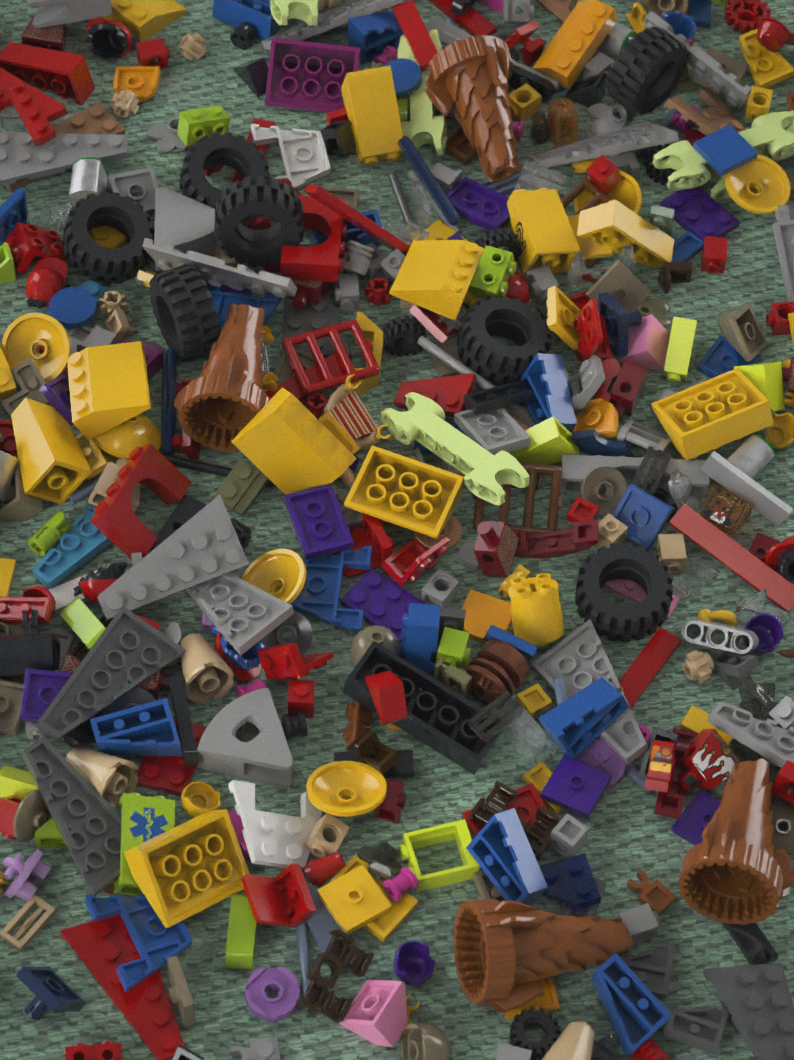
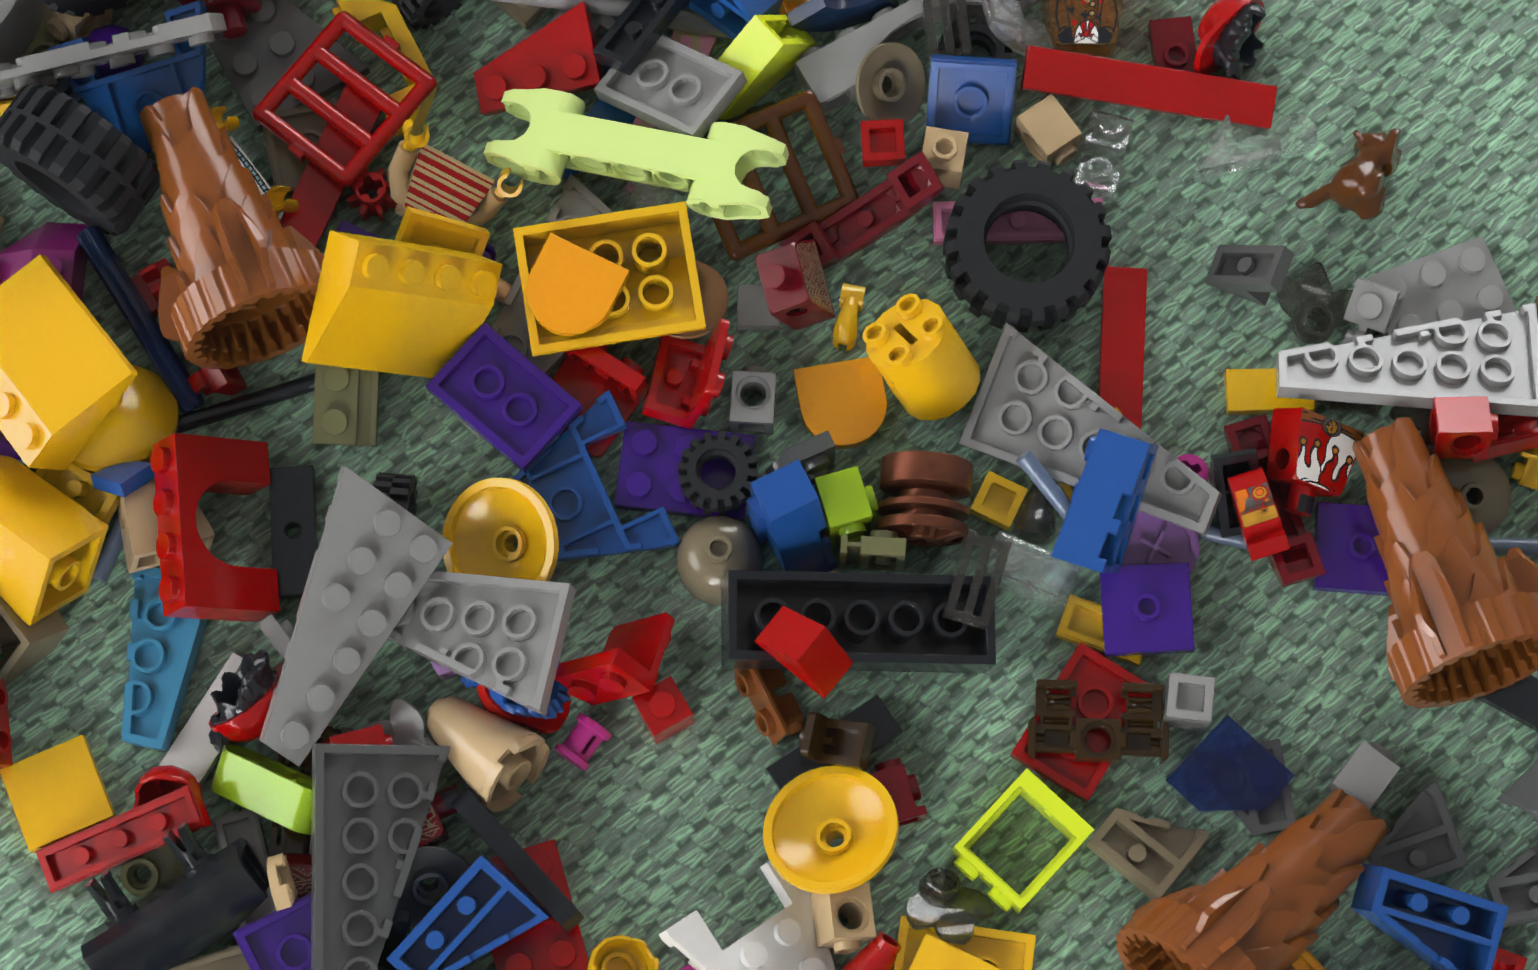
camera: 25 degrees left, 20 degrees up
(49, 534) = (106, 659): lime hinge -> none
(64, 659) = (281, 882): none -> tan tile
(112, 456) = (123, 477): none -> blue tile
(247, 742) = (633, 831): light grey piece -> none
(294, 725) = (680, 758): black wheel -> none
(300, 630) = (595, 618): dark grey dish -> none
(383, 483) = (572, 287): none -> light orange tile
(392, 597) = (712, 448): none -> black tyre
(400, 884) = (1001, 931): dark pink bush -> none
(508, 858) = (1137, 803): blue wedge -> none
(525, 648) = (916, 436): blue tile -> none
(655, 894) = (1357, 714): dark orange plate -> none
(698, 666) = (1199, 301): tan gear -> none
(708, 638) = (1190, 251): light grey beam -> none
(724, 616) = (1162, 208): yellow arm -> none
(767, 629) = (1259, 191): dark purple hair -> none

